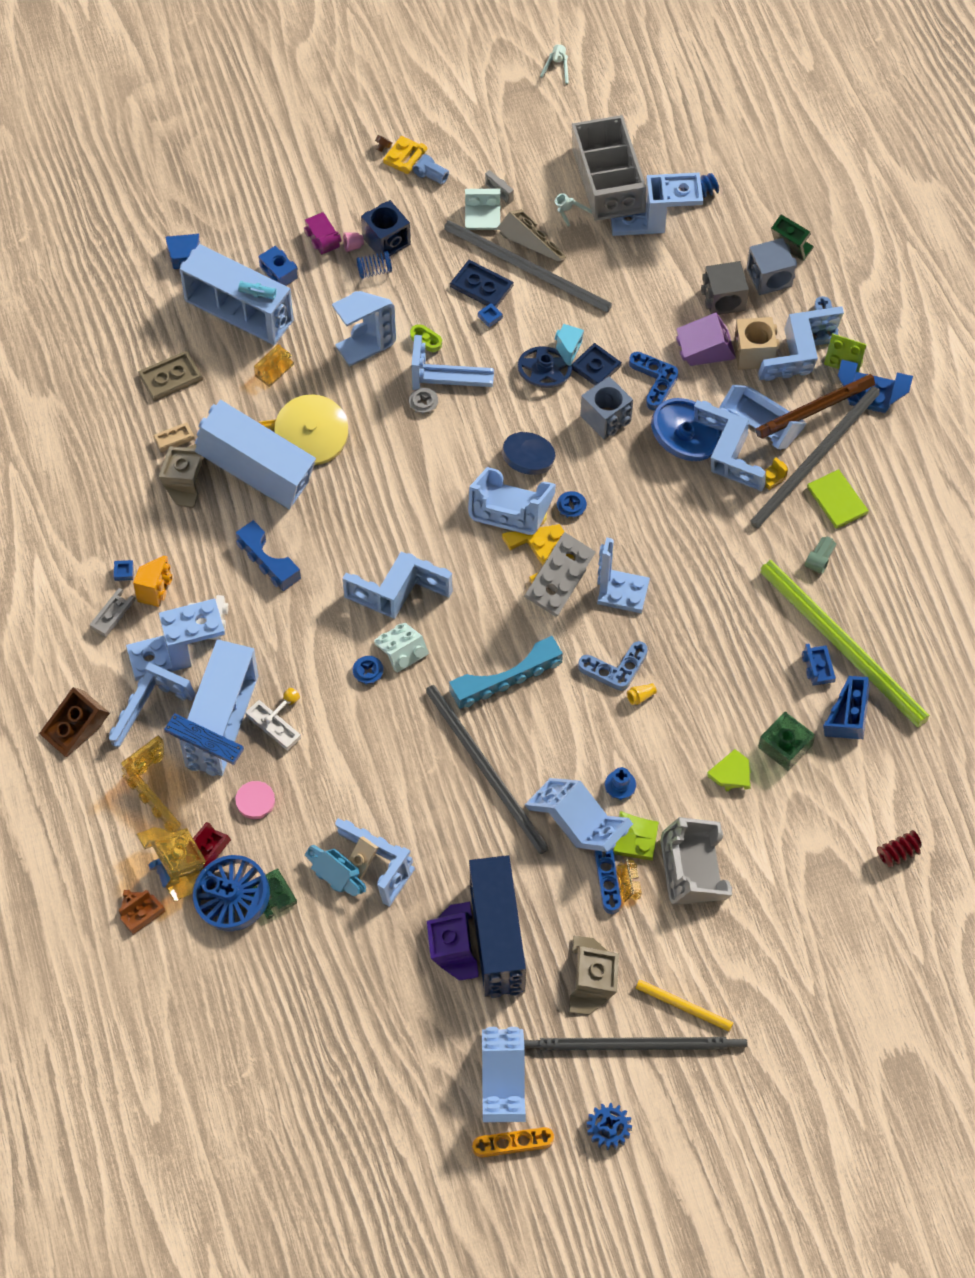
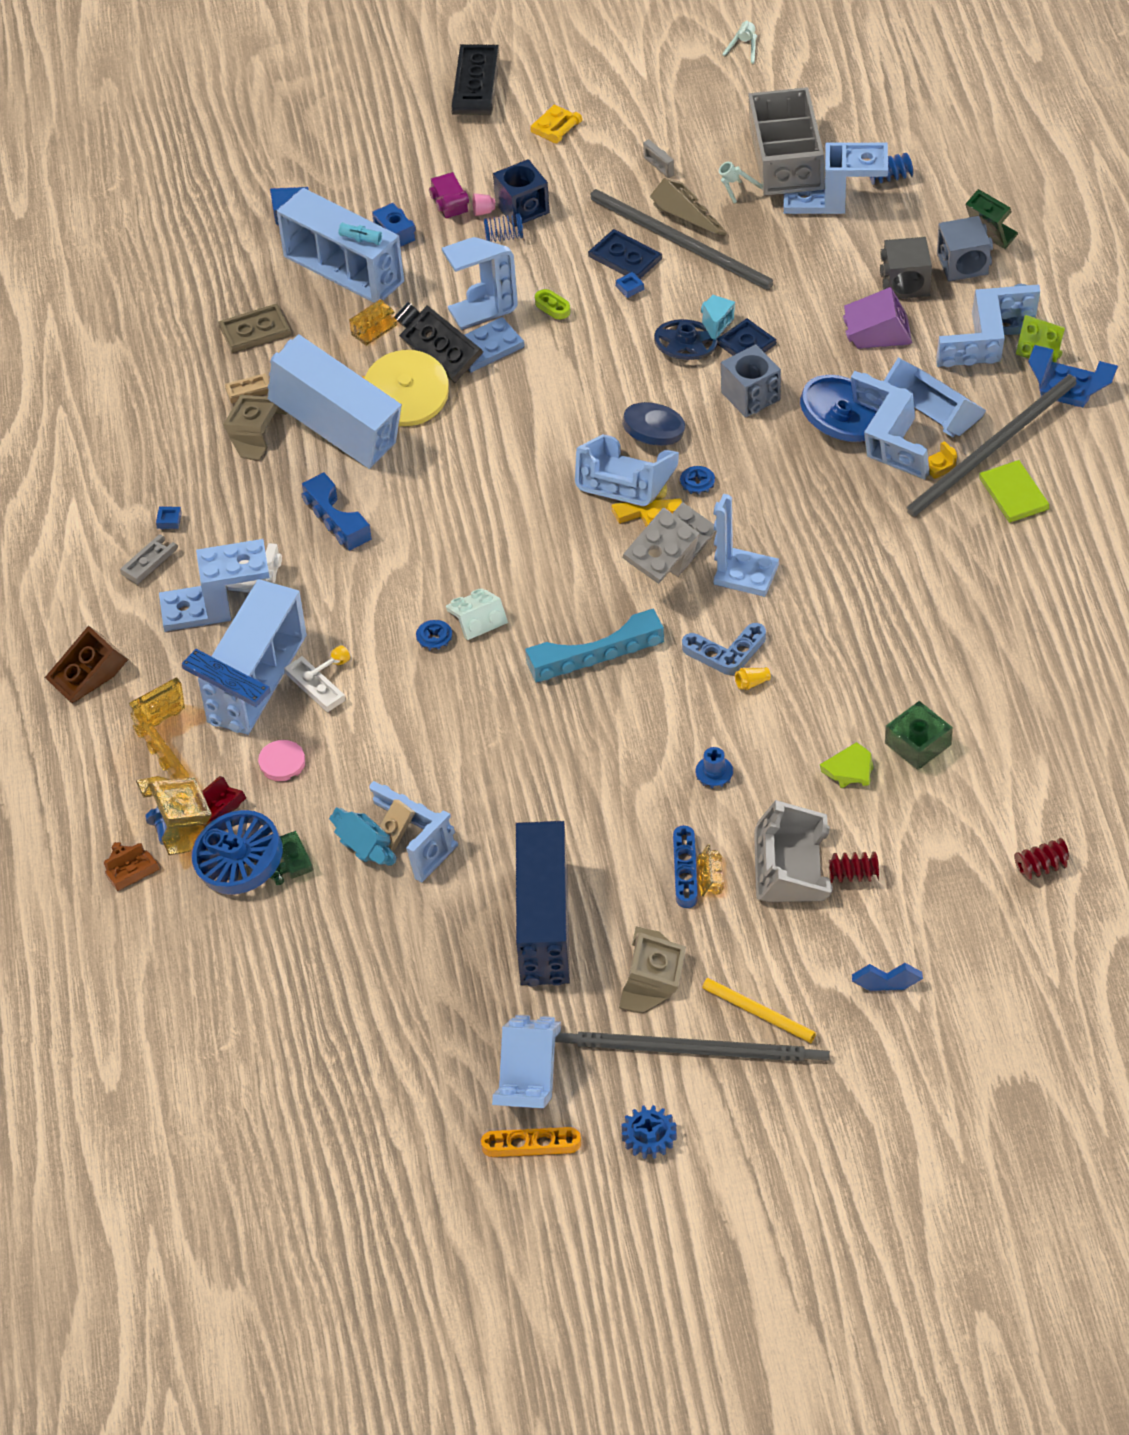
camera: 10 degrees right, 10 degrees down
(152, 581) = (198, 525): light orange slope -> none
(157, 676) = (185, 623): light blue bracket -> none
(330, 114) = (475, 79): none -> black hinge
(339, 384) = (445, 343): none -> black hinge
(374, 381) = (496, 340): none -> medium blue plate
(383, 142) = (532, 110): reddish brown tile -> none
(398, 584) = (480, 546): light blue bracket -> none
(427, 167) = (579, 136): medium blue piece -> none
(427, 395) = (545, 361): light grey gear -> none
(444, 373) = (563, 340): light blue bracket -> none
(451, 942) = (487, 924): dark purple piece -> none
(482, 209) = (636, 177): light aqua bracket -> none
(487, 769) = (558, 746): dark grey axle -> none
(579, 814) = (658, 794): light blue bracket -> none
(639, 840) = (724, 827): lime plate -> none
(660, 374) = (800, 340): blue beam -> none
(747, 867) = (853, 867): none -> dark red piece
(755, 331) = (934, 317): tan brick -> none
(776, 970) = (878, 980): none -> blue tile
(816, 406) = (1000, 389): reddish brown piece -> none
(819, 665) = (969, 660): blue bracket -> none
(820, 557) = (984, 549): sand green piece -> none
(845, 644) = (1004, 641): lime axle -> none
(850, 710) = (1000, 709): blue wedge -> none

